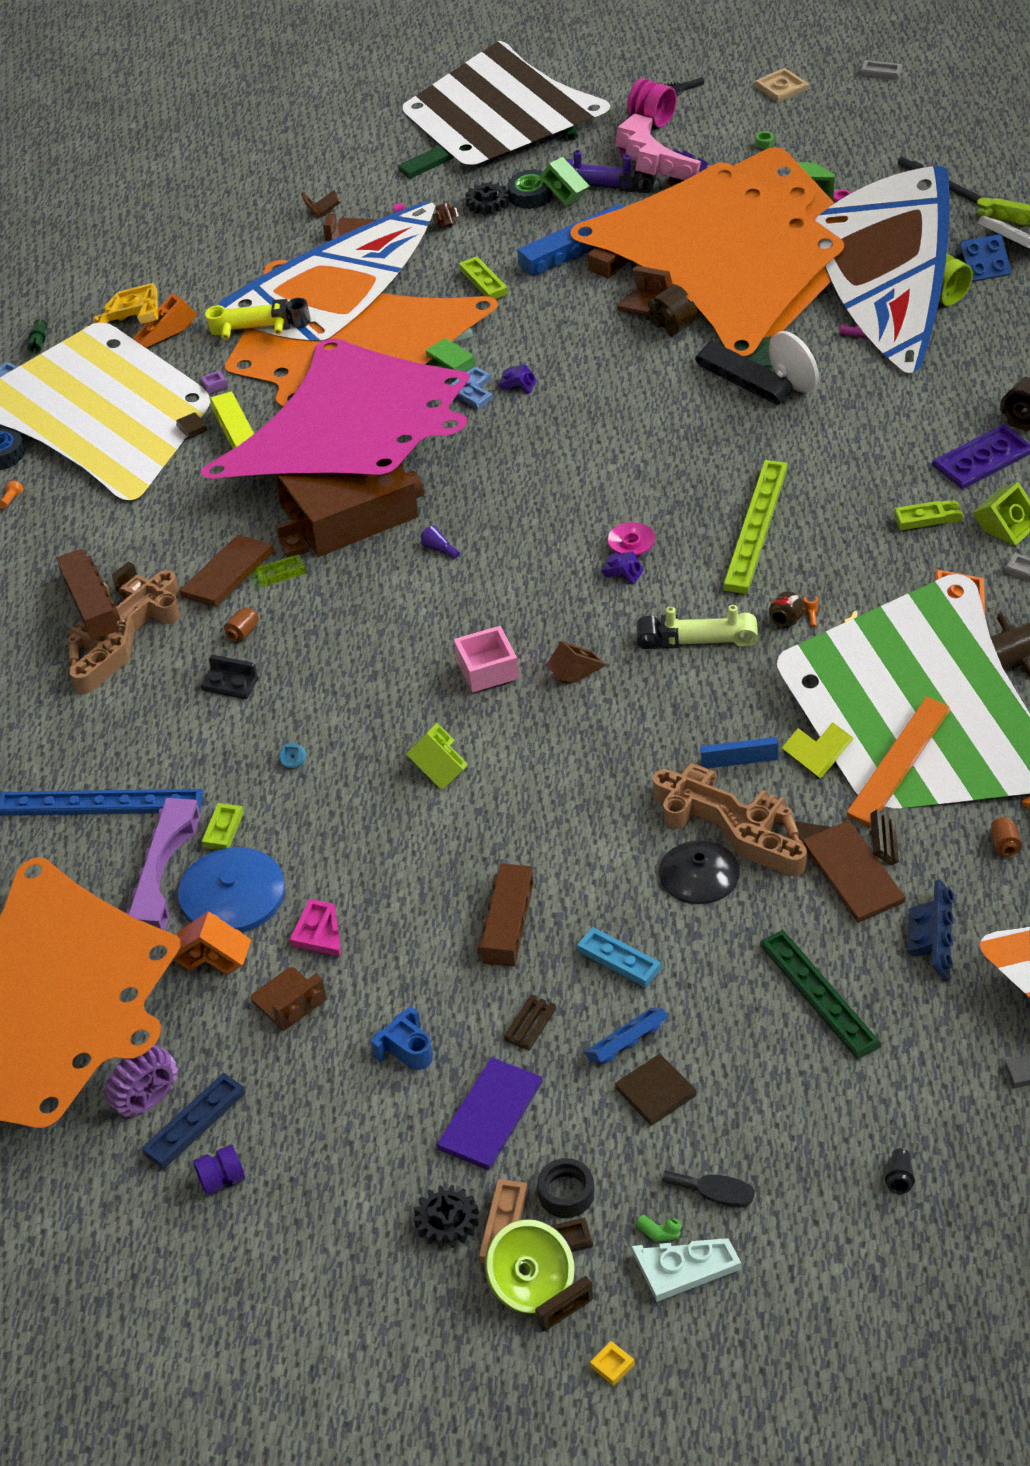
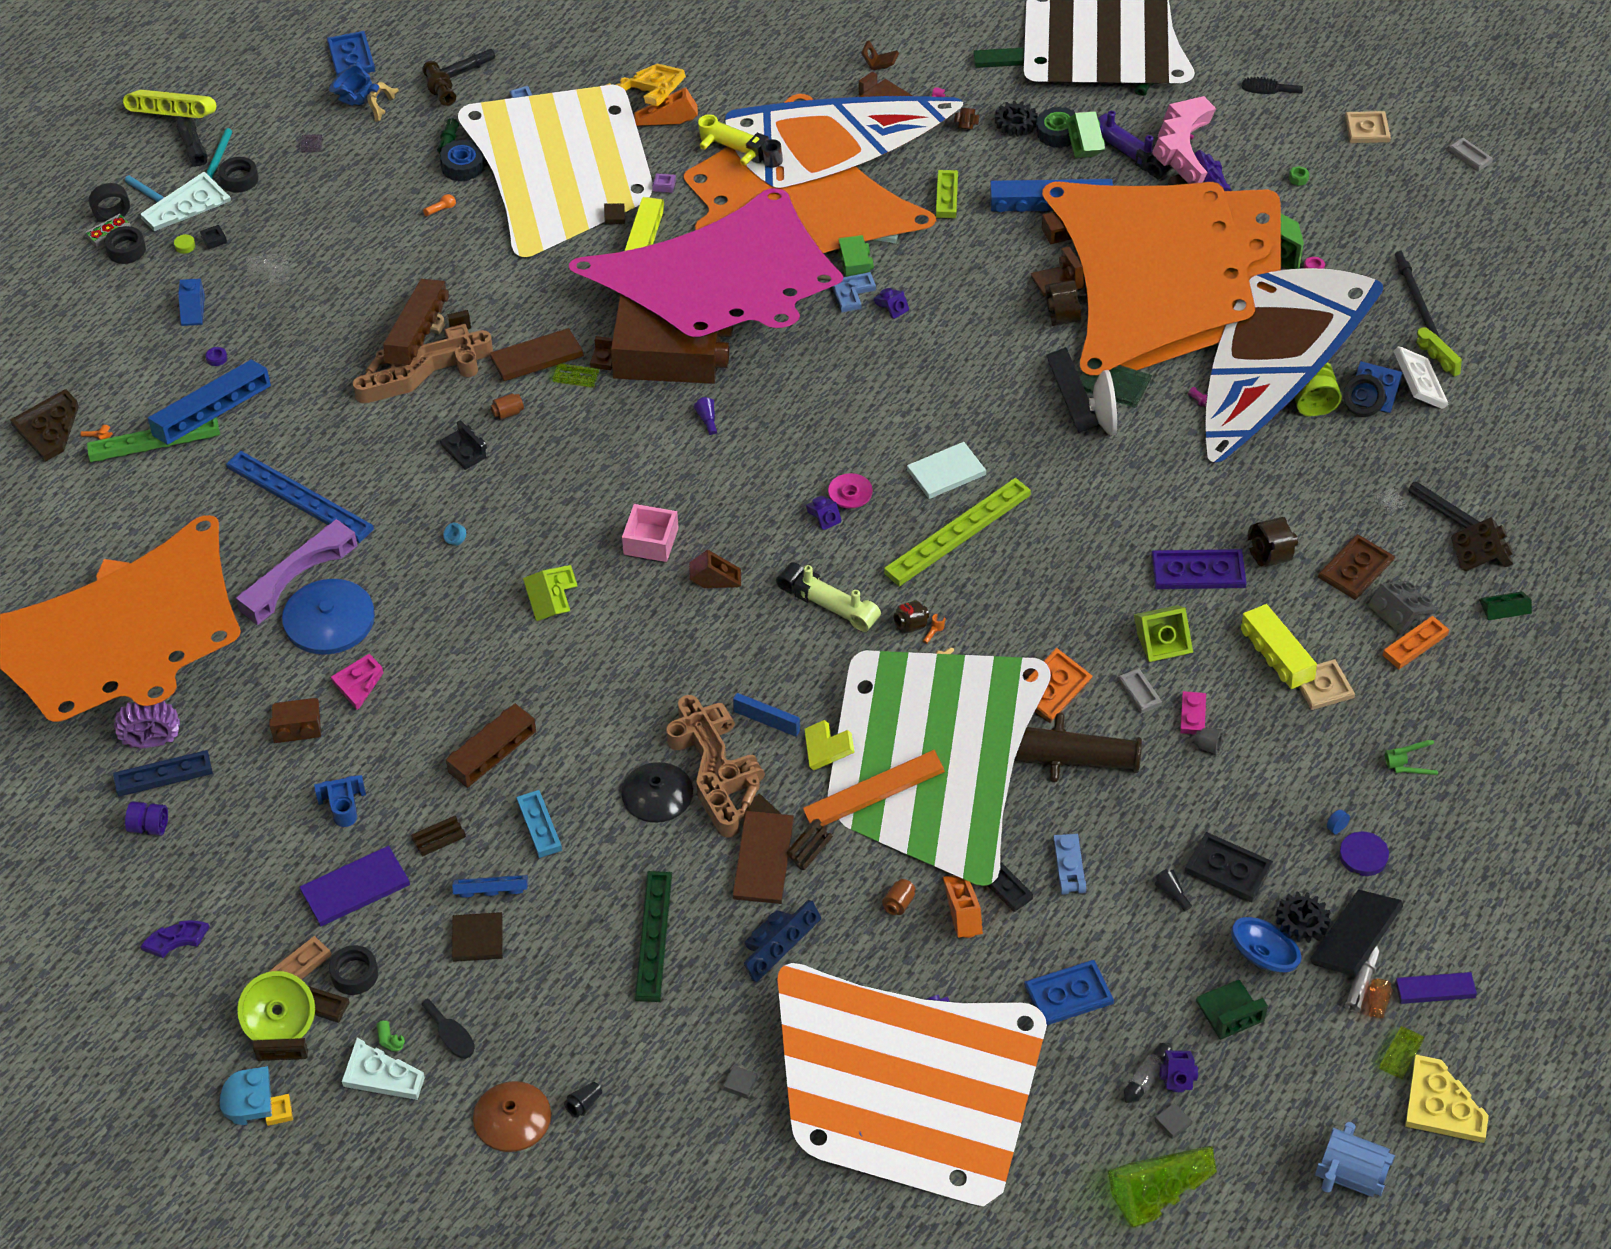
camera: 30 degrees right, 5 degrees up
(37, 336) = (567, 74): dark green pin -> none
(213, 942) = (275, 650): orange brick -> none
(222, 826) = (361, 563): lime plate -> none
(347, 1266) = (174, 936): none -> dark purple tile
(460, 1210) = (260, 941): black gear -> none
(572, 1369) = (247, 1096): none -> dark azure slope
(652, 101) = (1228, 92): dark pink wheel -> none
(695, 485) = (946, 470): none -> light aqua tile
(843, 1242) = (514, 1128): none -> dark orange dish
(927, 514) = (1101, 596): lime hinge -> none
(998, 255) = (1359, 379): none -> black tyre

